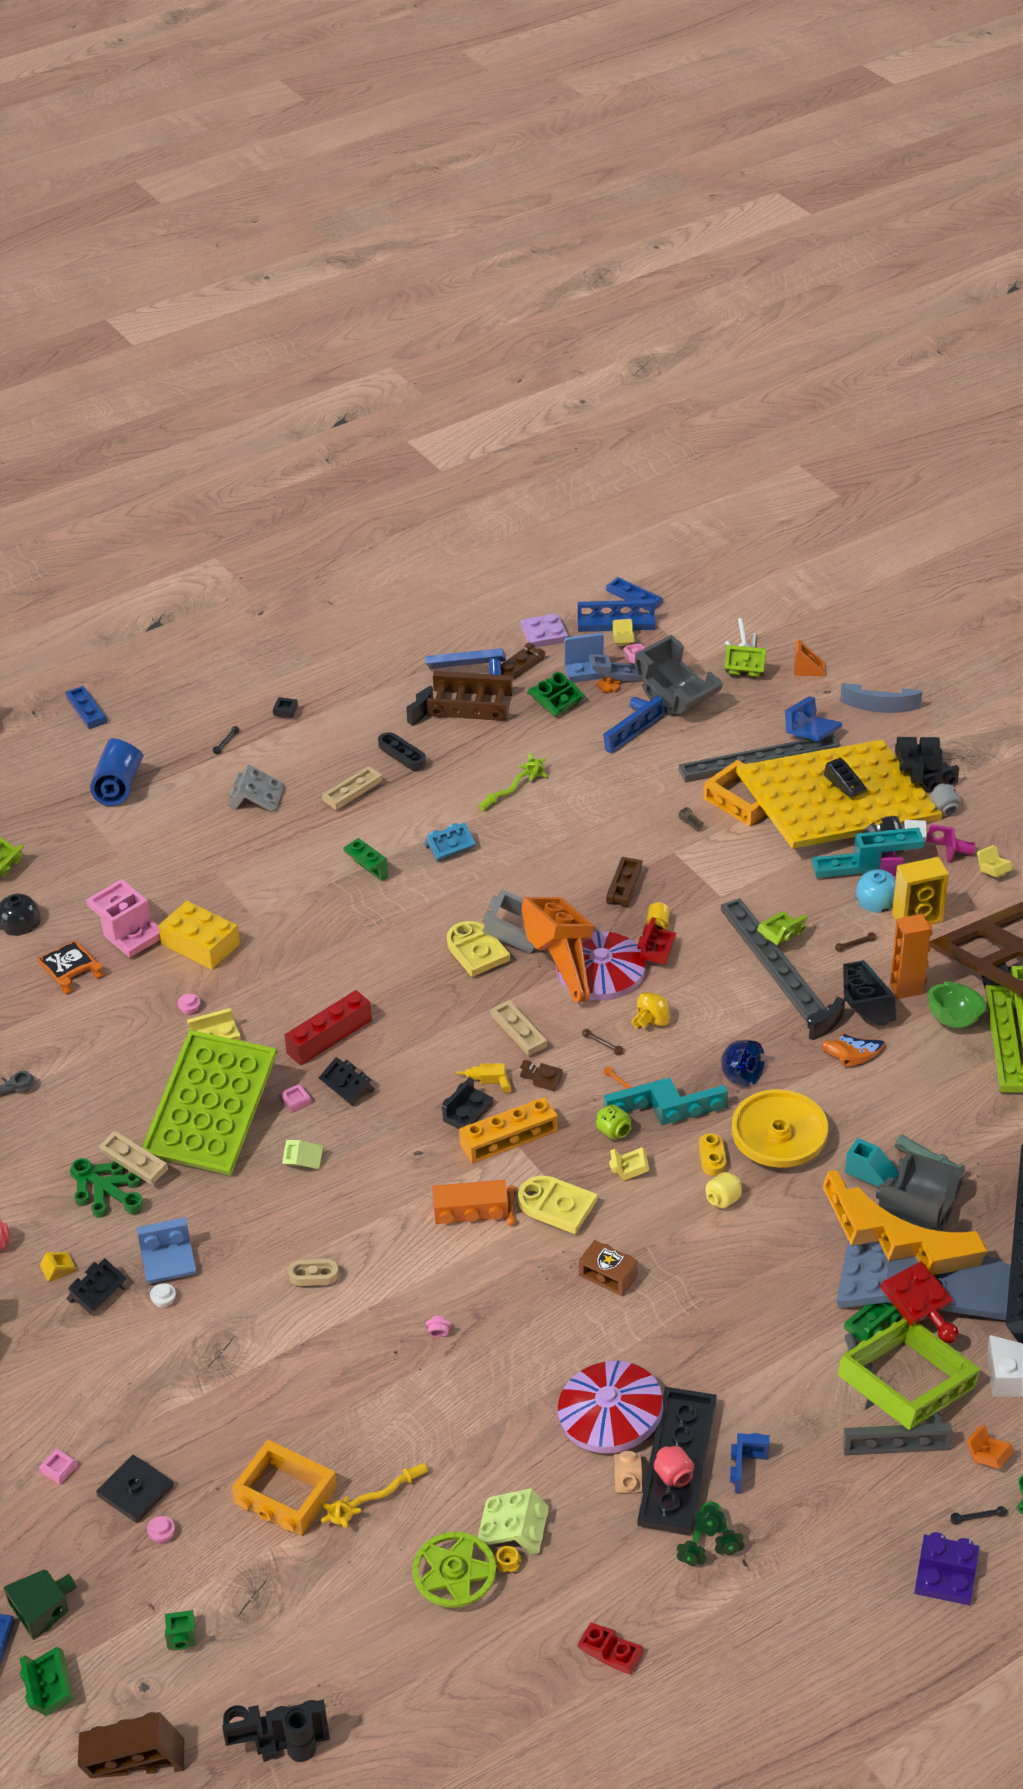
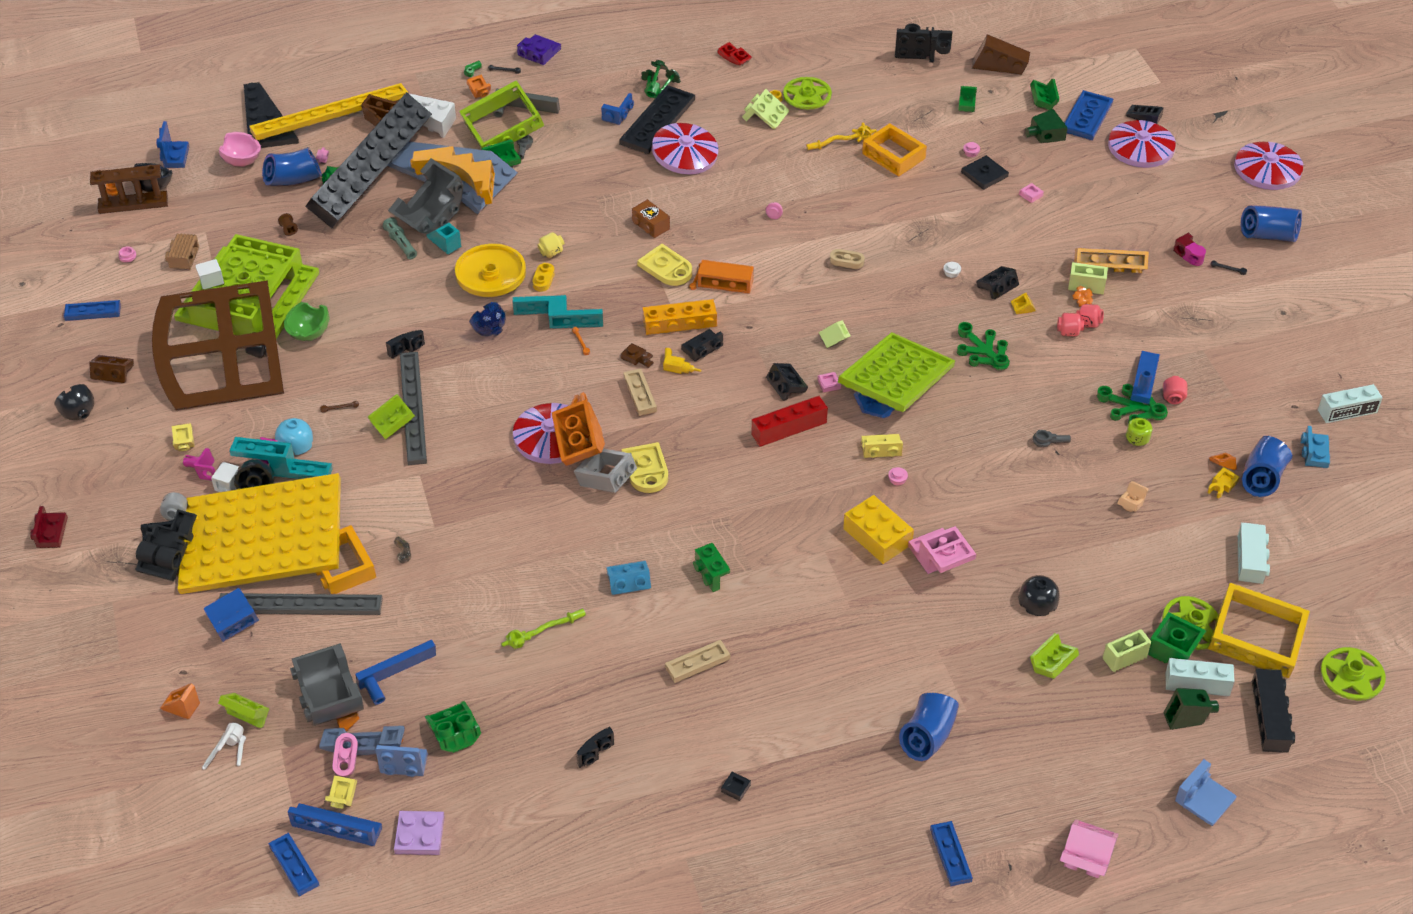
camera: 165 degrees left, 5 degrees up
(69, 962) = (995, 541): flag -> none
(133, 1157) = (961, 353): tan plate -> none
(166, 1250) = (946, 290): medium blue bracket -> none
(217, 749) = (819, 756): black hinge -> none
(257, 788) = (794, 677): light grey bracket -> none
(402, 750) = (631, 689): black plate -> none
(474, 684) = (541, 765): reddish brown fence -> none
(492, 656) = (525, 791): blue piece -> none
(522, 660) = (467, 790): reddish brown plate -> none
(613, 1122) = (603, 300): lime head -> none
(618, 1050) = (571, 365): reddish brown hinge -> none
(624, 881) = (493, 499): reddish brown plate -> none
(628, 1472) = (689, 116): light nougat bracket -> none
(629, 1164) = (605, 277): light yellow bracket -> none
(651, 1009) = (532, 377): yellow piece -> none
(656, 943) = (499, 430): red bracket -> none
(661, 913) = (485, 456): yellow brick -> none
(674, 1466) = (664, 102): coral head -> none
(839, 772) = (251, 531): black slope -> none
(853, 1050) = (398, 322): orange arm -> none
(868, 993) = (364, 351): black wedge -> none
(880, 701) = (125, 625): sand blue slope -> none
(910, 956) = (321, 337): orange brick -> none
(920, 1296) = (472, 144): red plate -> none
(921, 890) = (270, 397): yellow brick -> none

